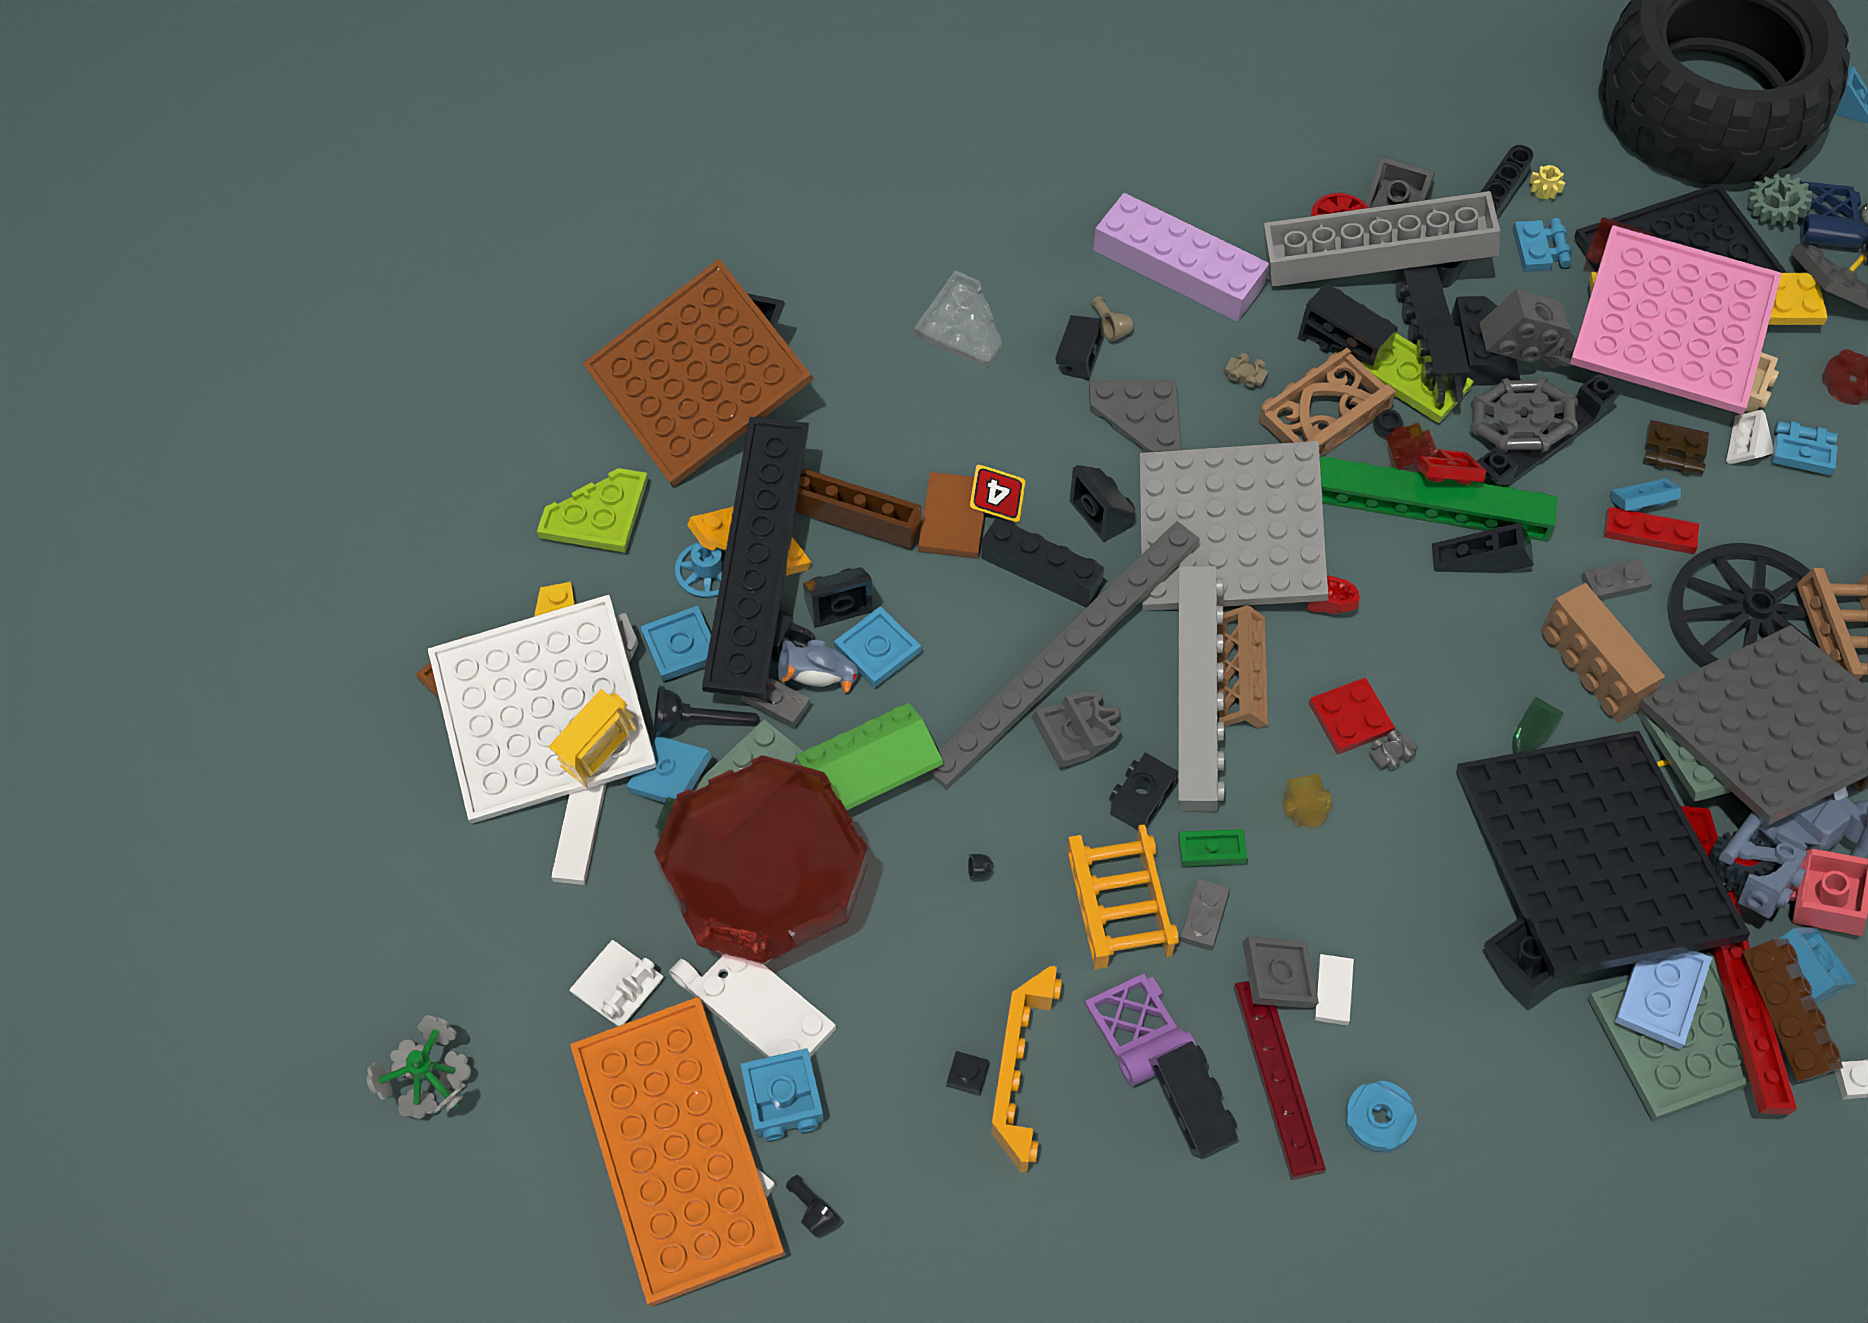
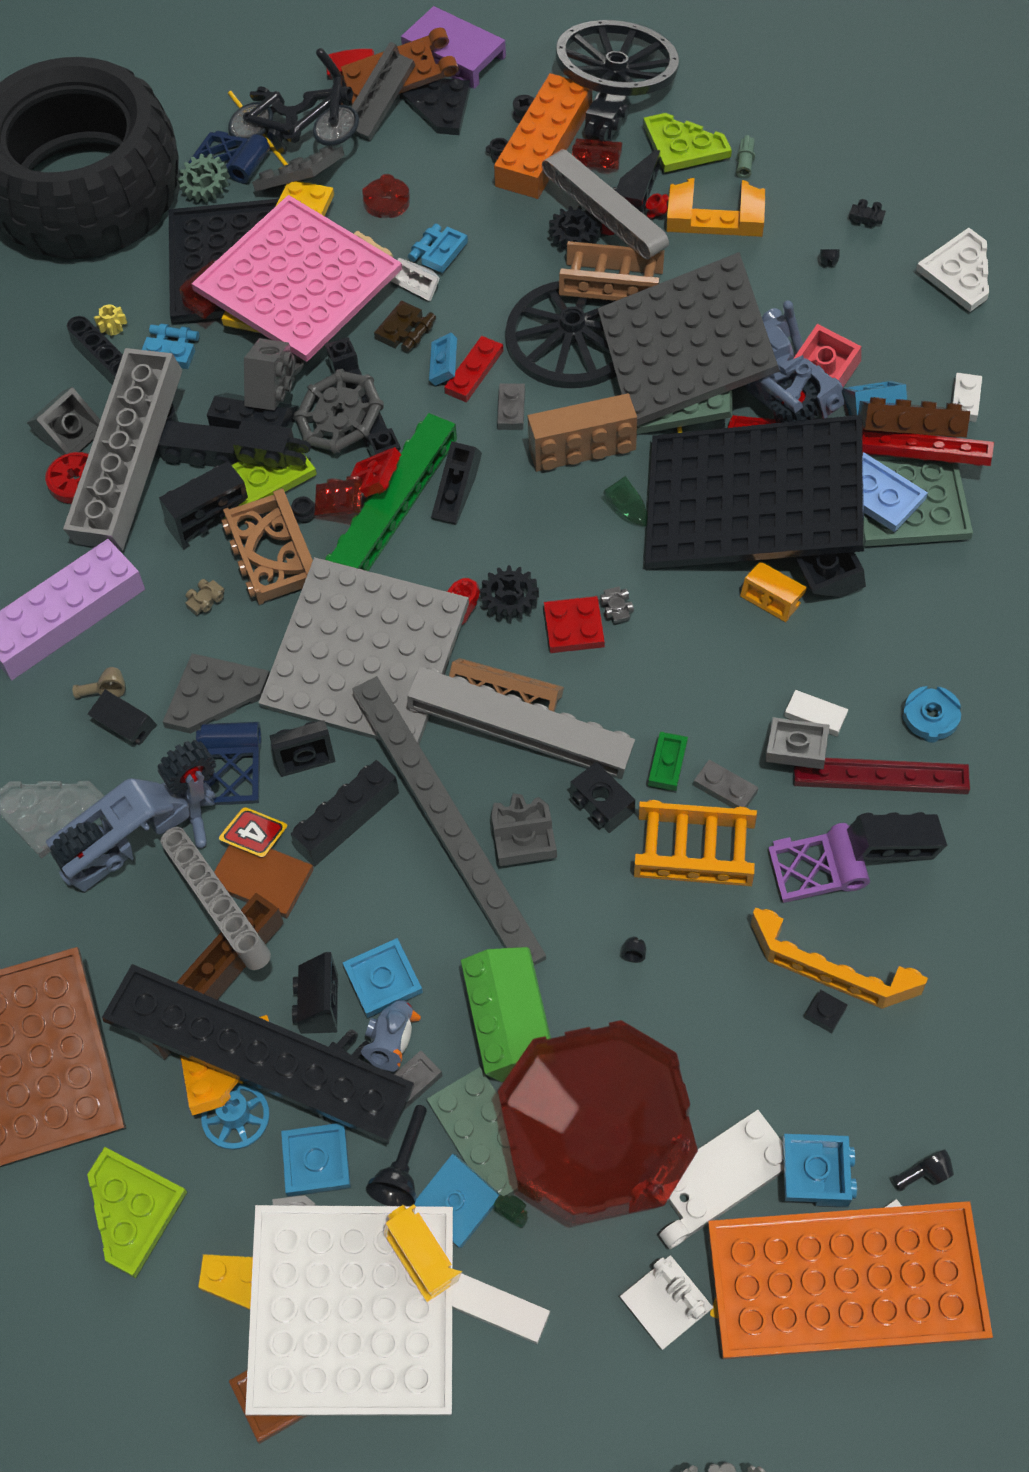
camera: 70 degrees left, 0 degrees up
(901, 472) = (216, 899): none -> light grey beam
(991, 398) = (90, 853): none -> sand blue piece
(1084, 435) = (233, 741): none -> dark blue piece
(1306, 801) = (647, 678): clear yellow brick -> none
(1350, 630) = (509, 593): none -> black gear
(1477, 906) = (772, 591): none -> light orange hinge

